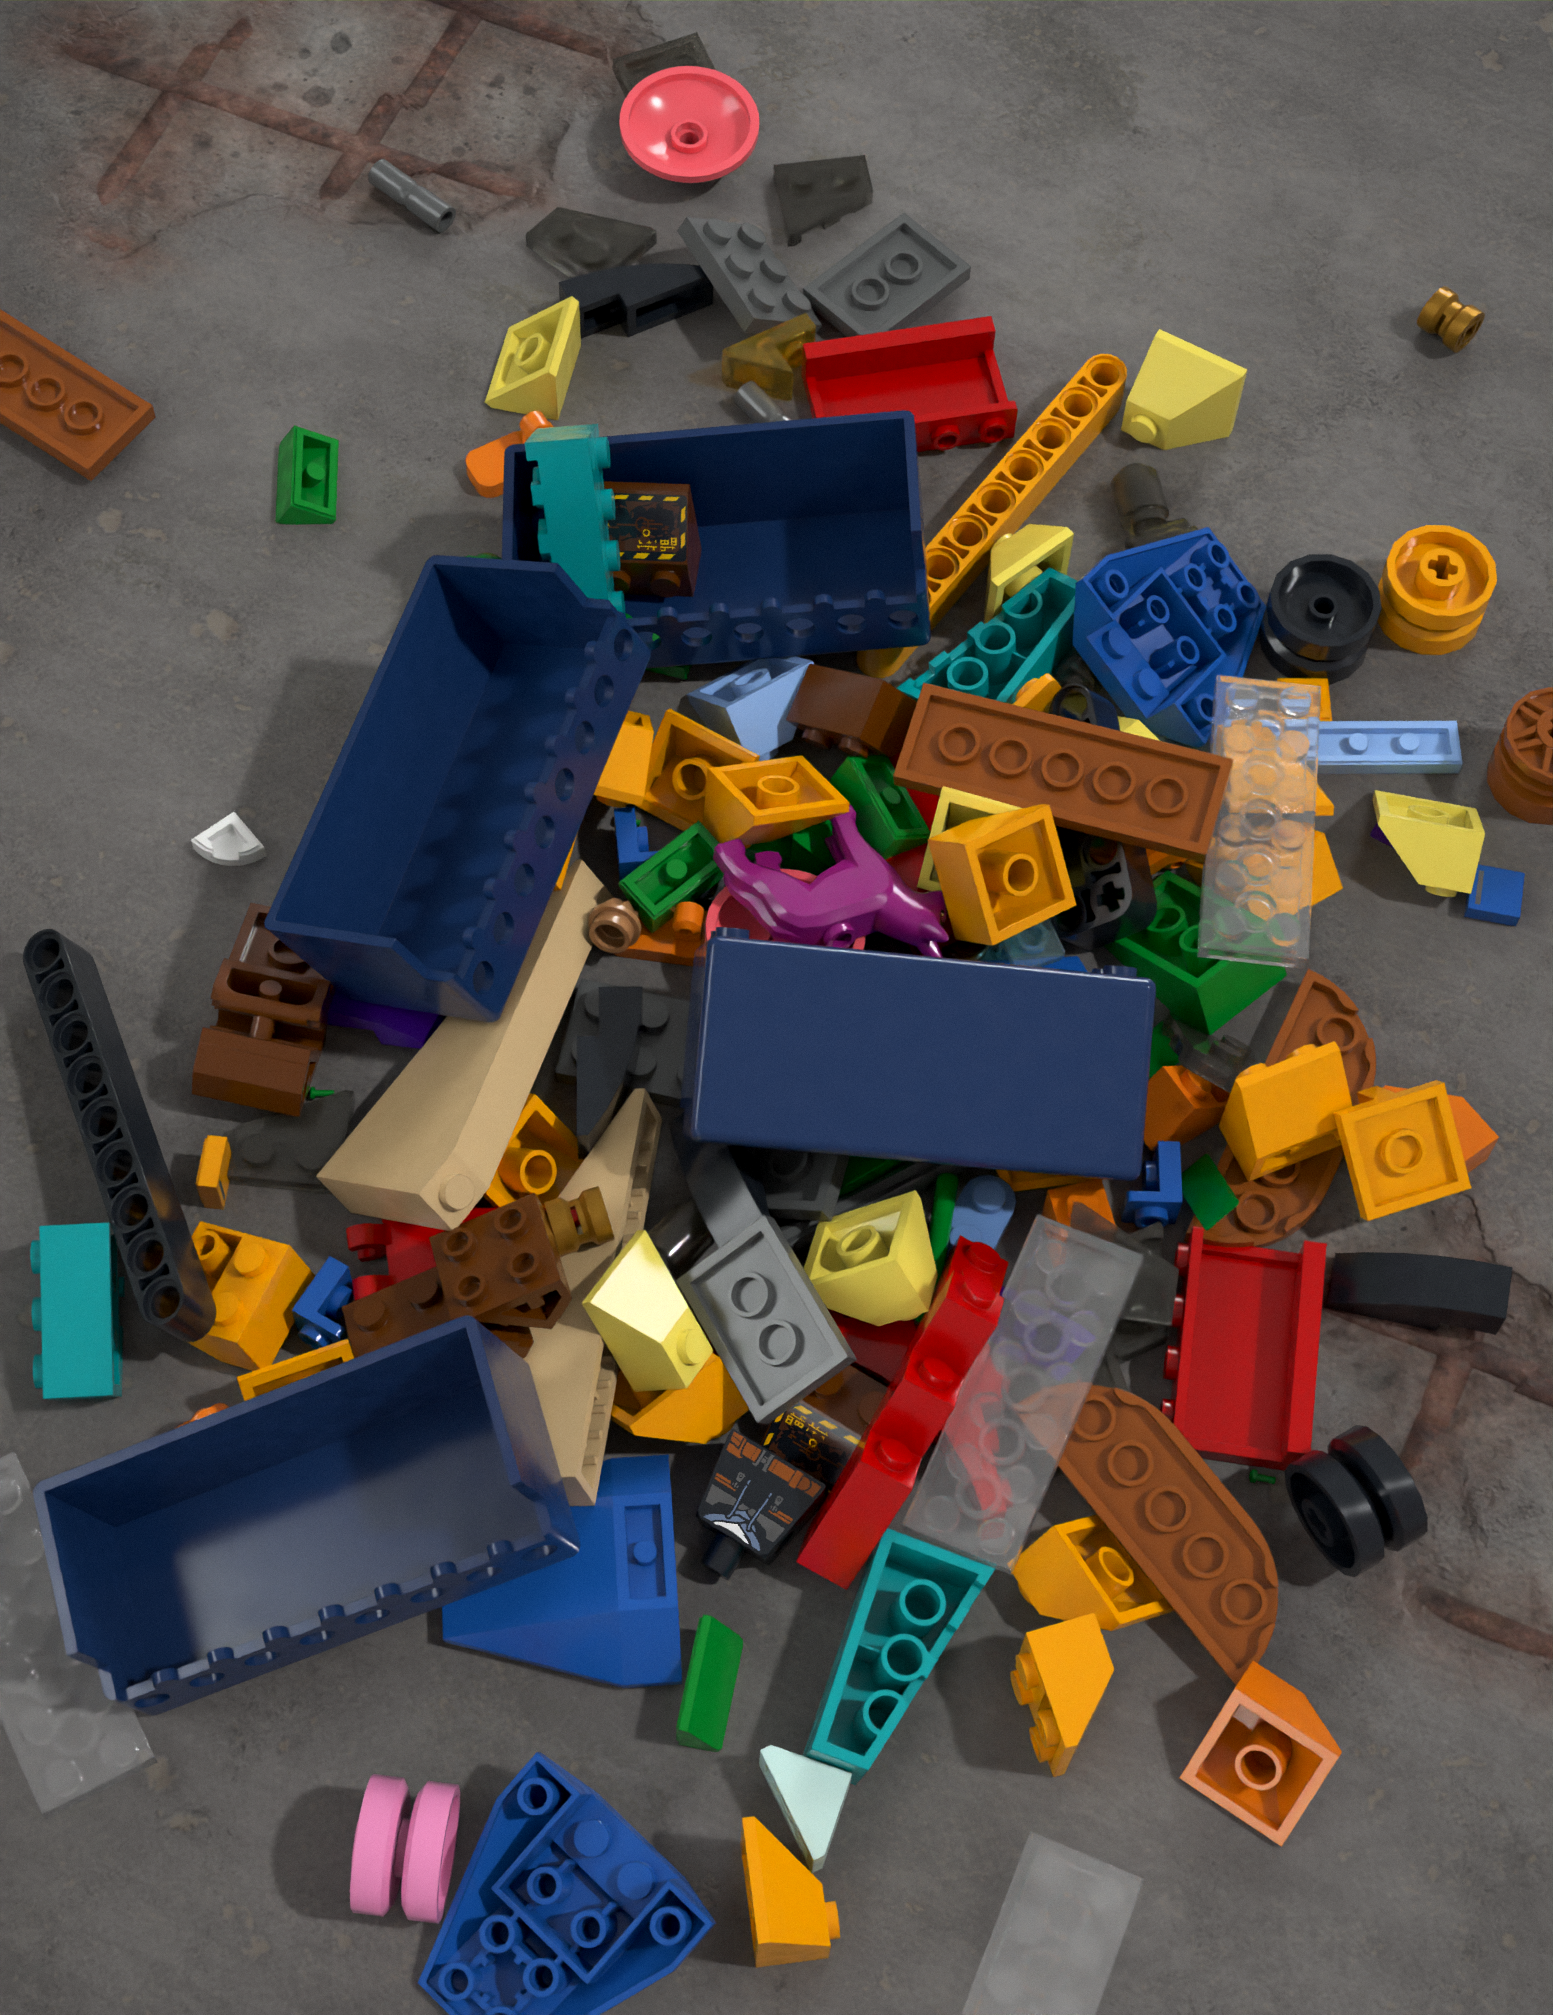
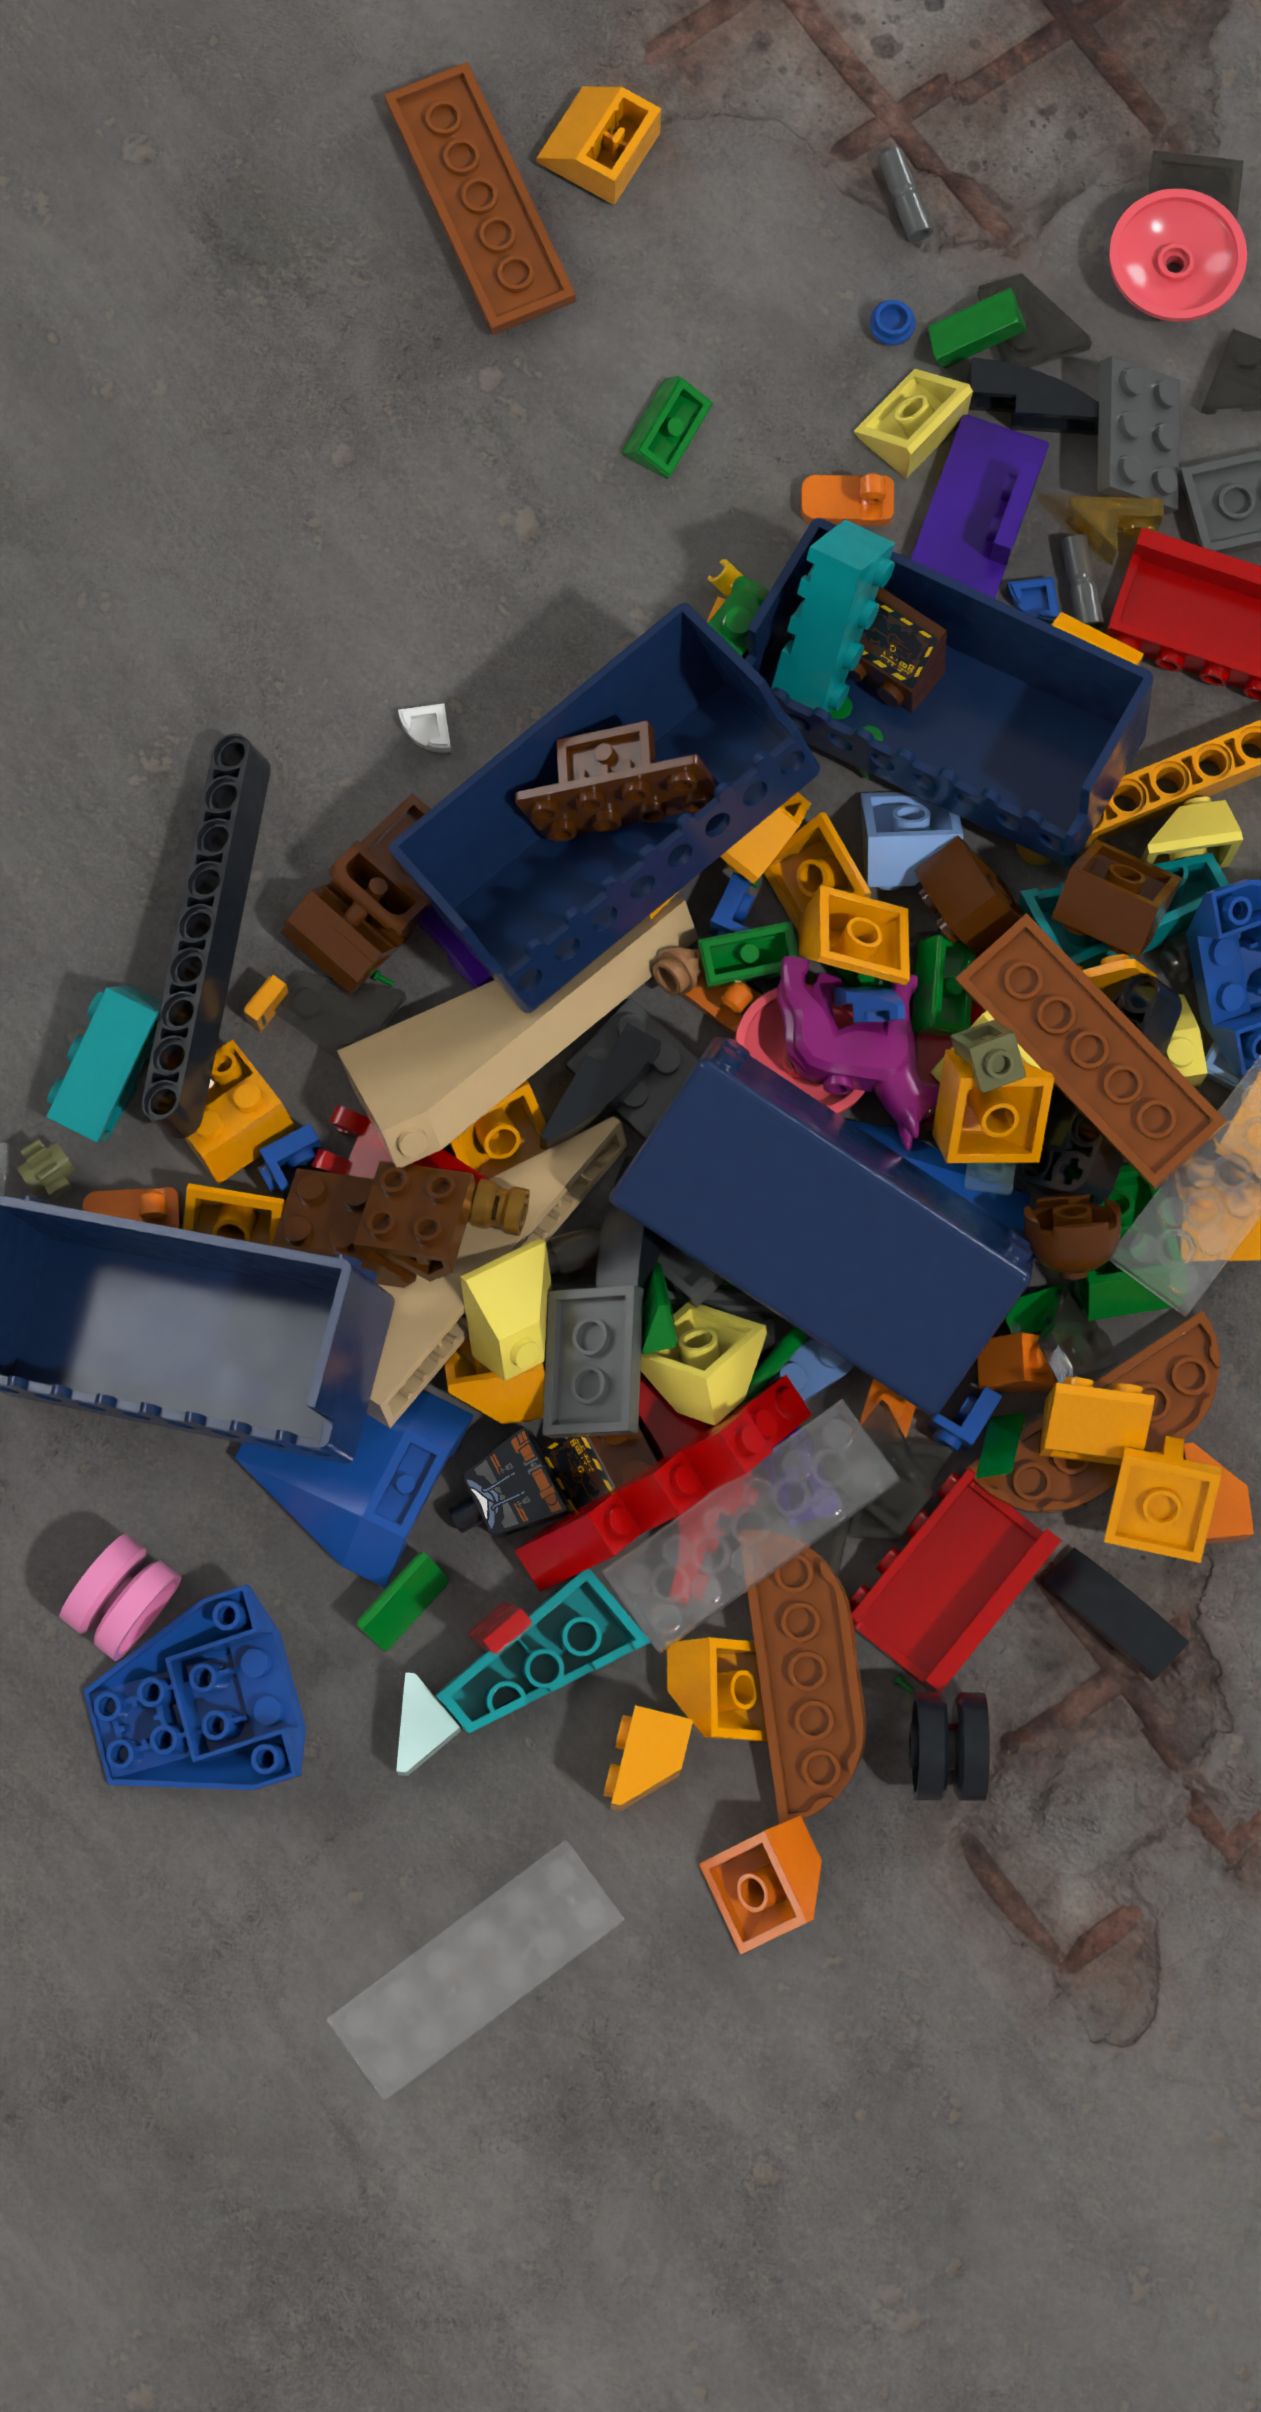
camera: 30 degrees right, 15 degrees up
(67, 1448) = (46, 1169): none -> olive gear
(102, 270) = (602, 140): none -> light orange slope
(458, 763) = (615, 781): none -> reddish brown bracket
(465, 298) = (892, 323): none -> blue plate
(546, 264) = (976, 328): none -> green slope
(639, 382) = (980, 503): none -> dark purple bracket
(784, 1901) = (358, 1787): light orange slope -> none
(805, 1235) = (658, 1318): none -> green slope
(825, 846) = (871, 1003): none -> blue slope
(834, 1639) = (500, 1627): none -> red tile
(979, 807) = (992, 1054): none -> olive bracket
(993, 643) = (1115, 898): none -> reddish brown slope
(1157, 944) = (1072, 1233): none -> reddish brown cylinder

